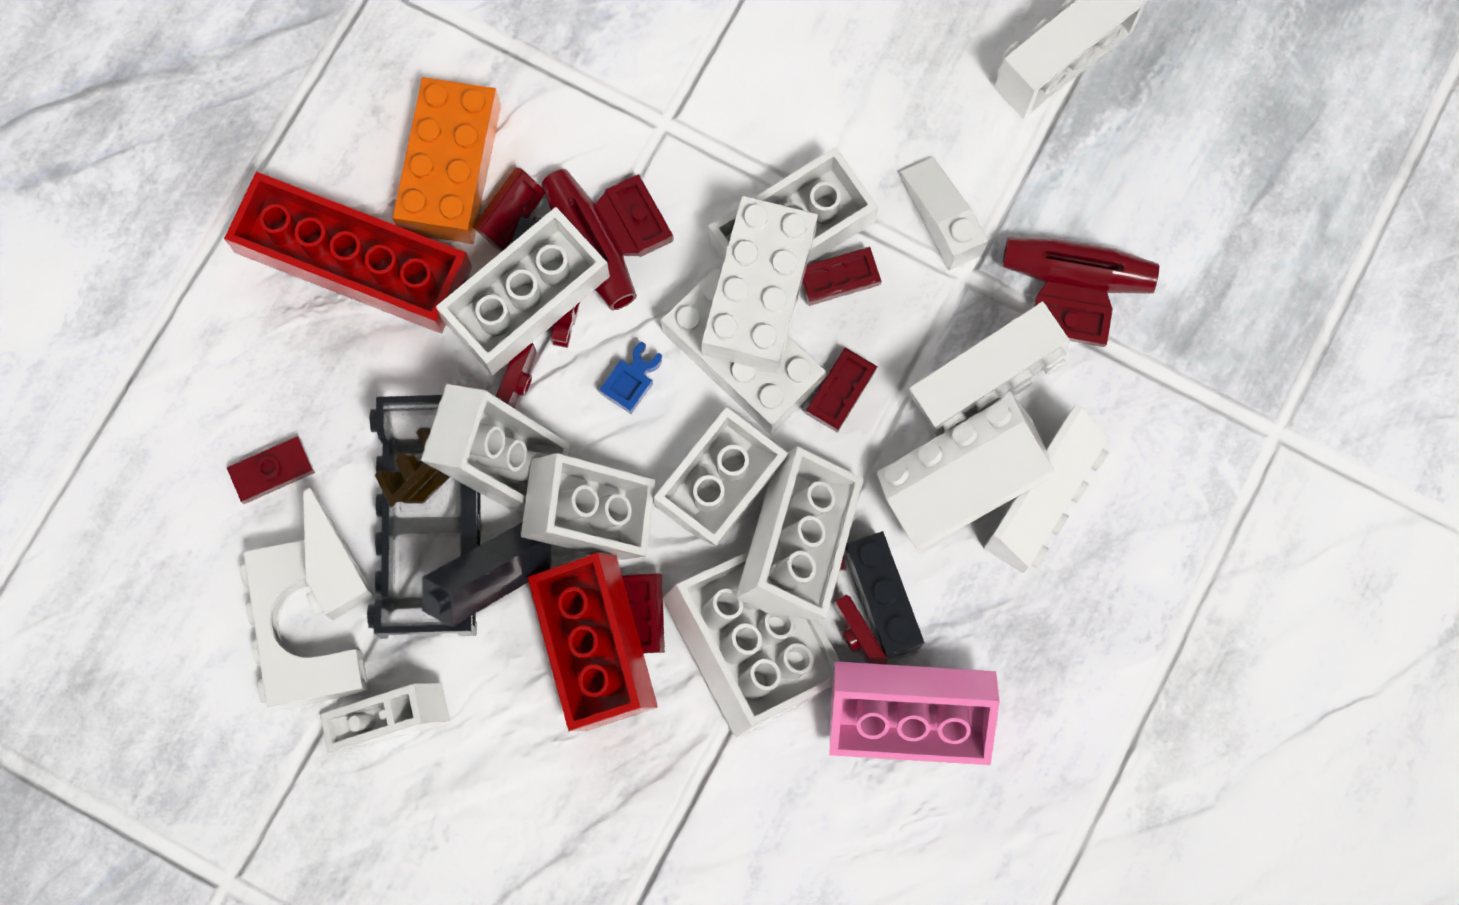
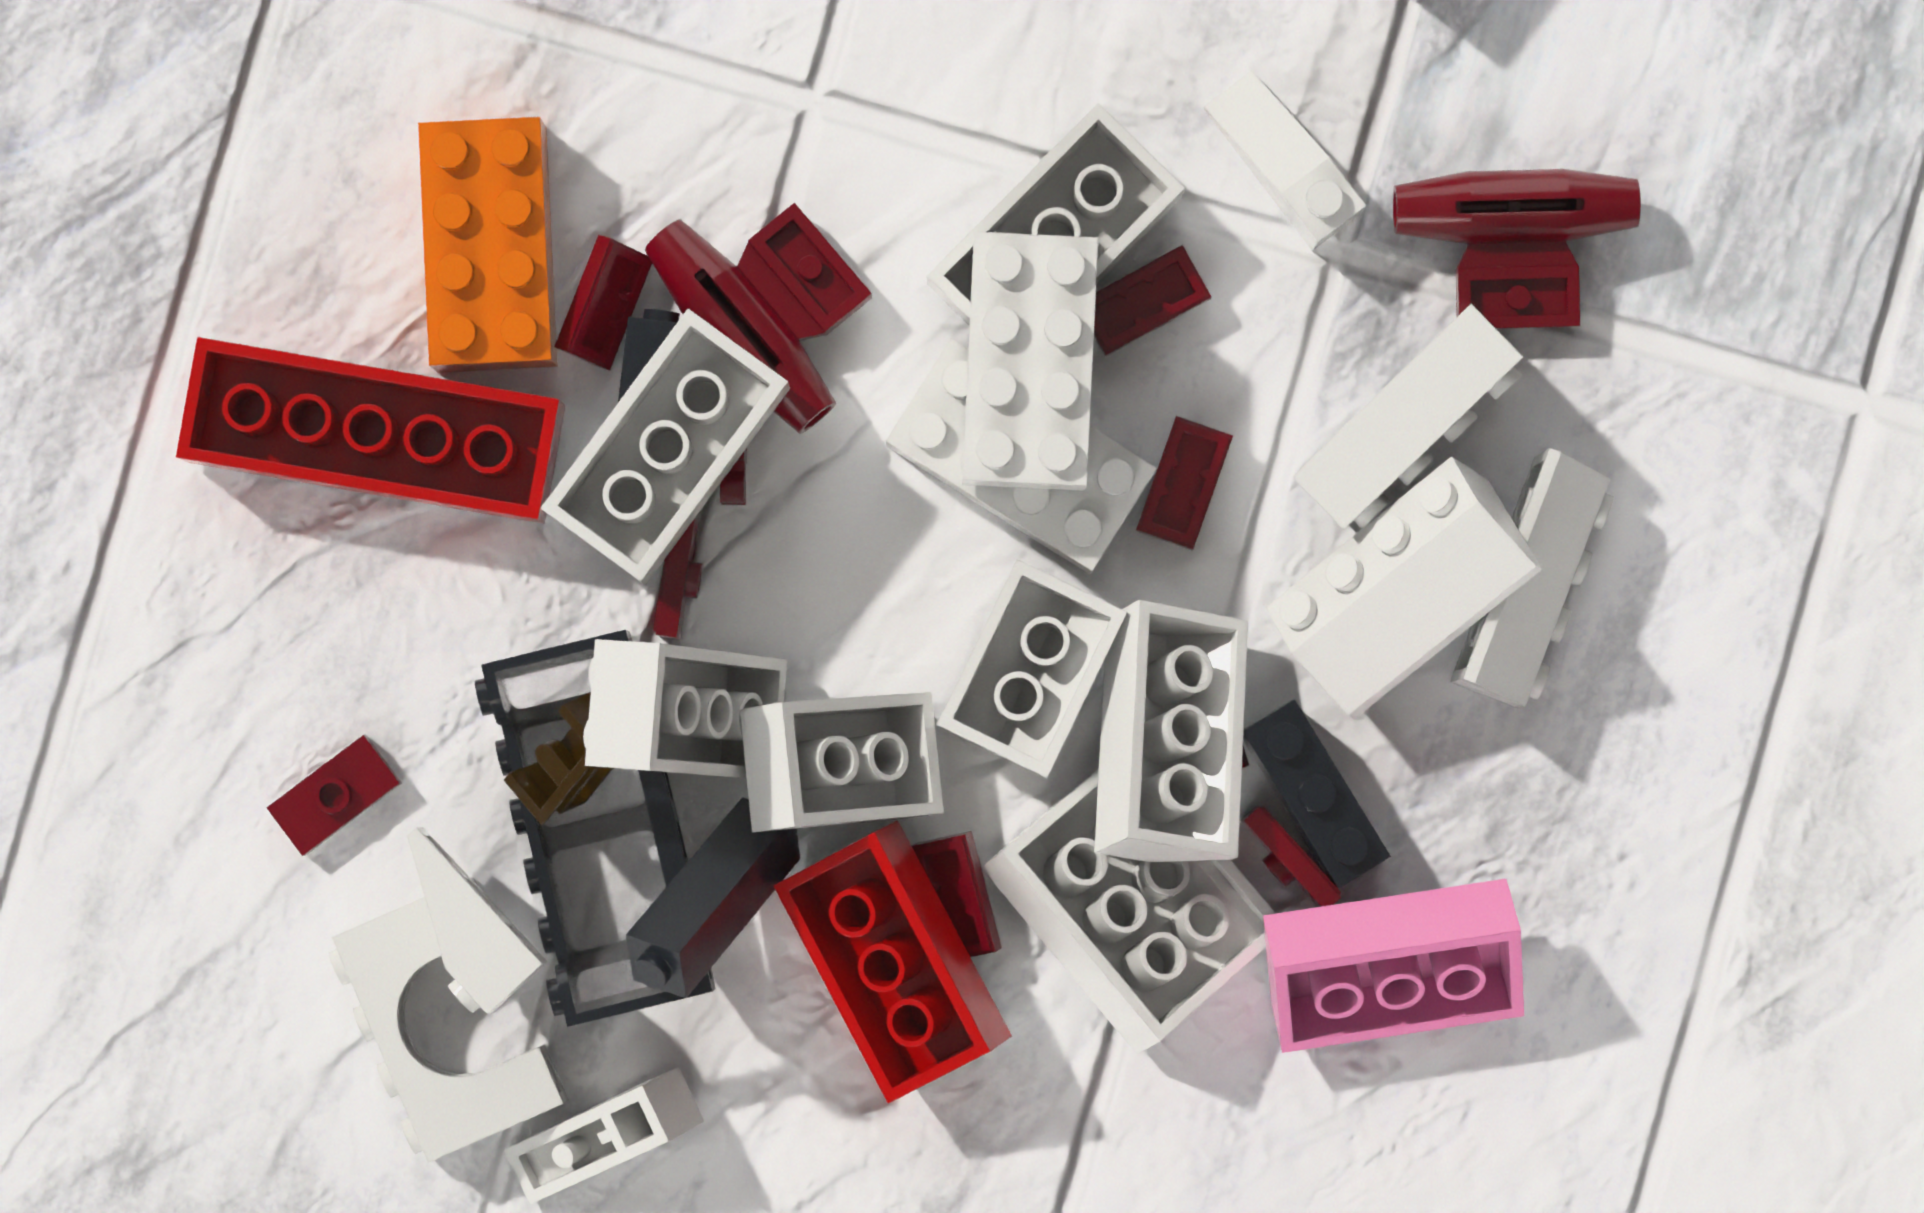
camera: 15 degrees left, 10 degrees up
(629, 383) = (853, 542): blue plate -> none

